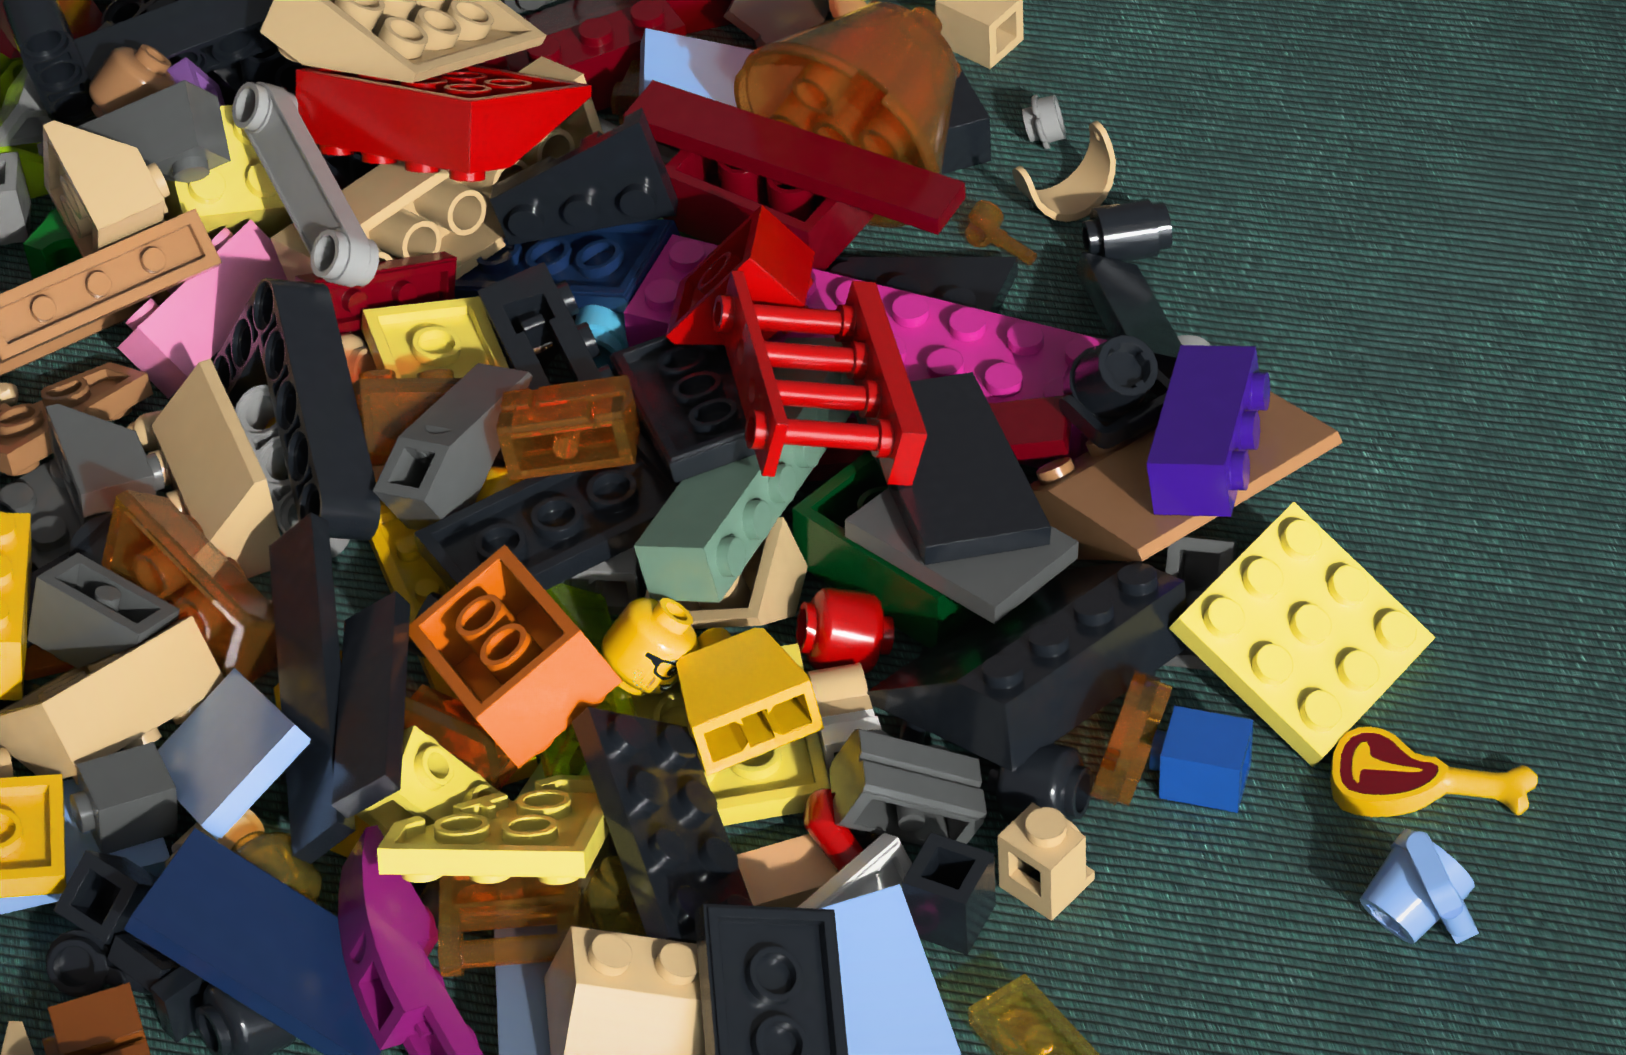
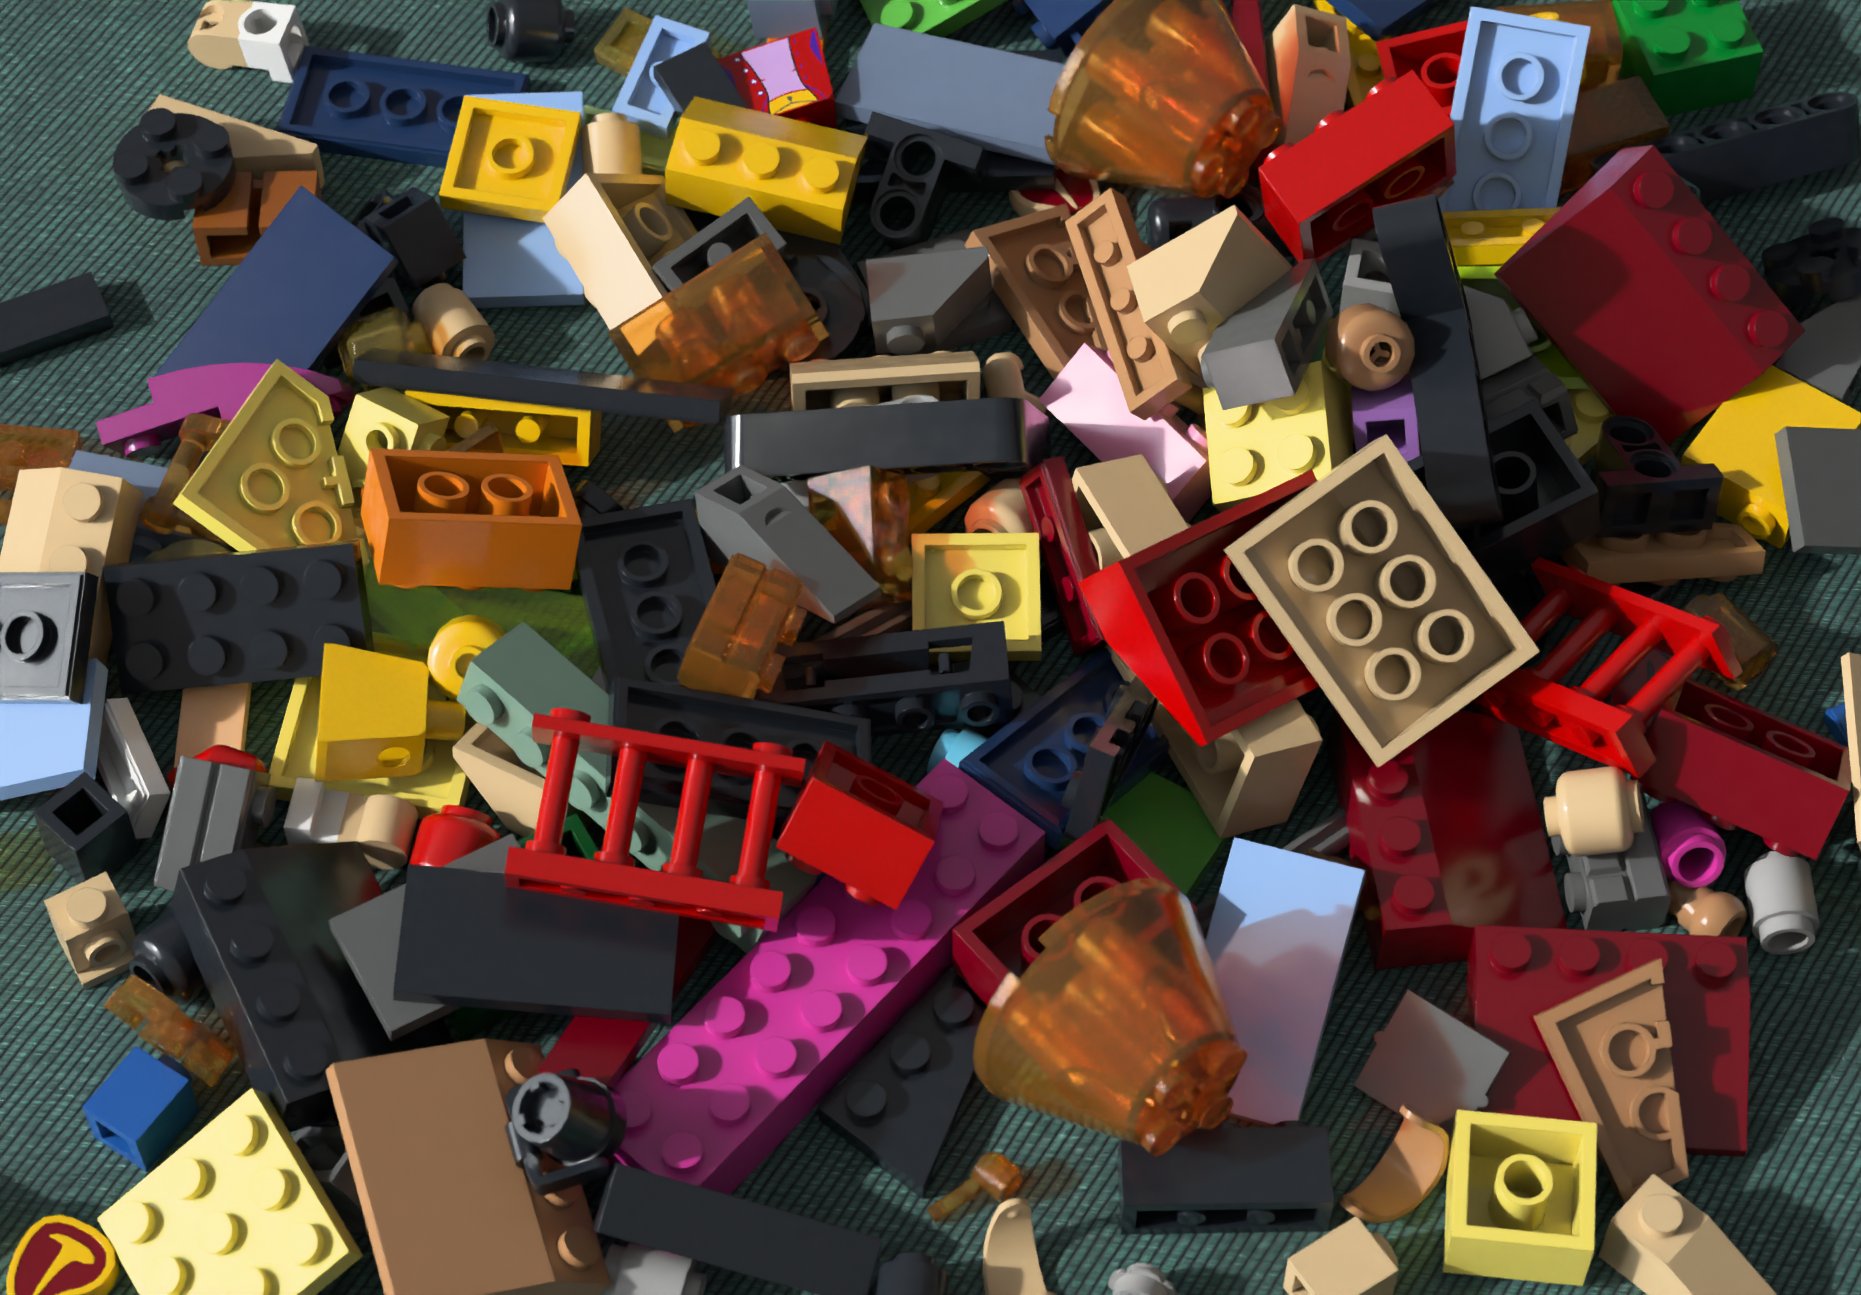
camera: 105 degrees right, 10 degrees up
(125, 798) = (515, 258): dark grey brick -> none
(230, 753) = (517, 327): light blue tile -> none
(305, 185) = (1036, 473): light grey piece -> none
(371, 705) = (470, 406): black tile -> none
(800, 158) = (1168, 848): dark red tile -> none
(1206, 430) = (440, 1168): dark purple brick -> none

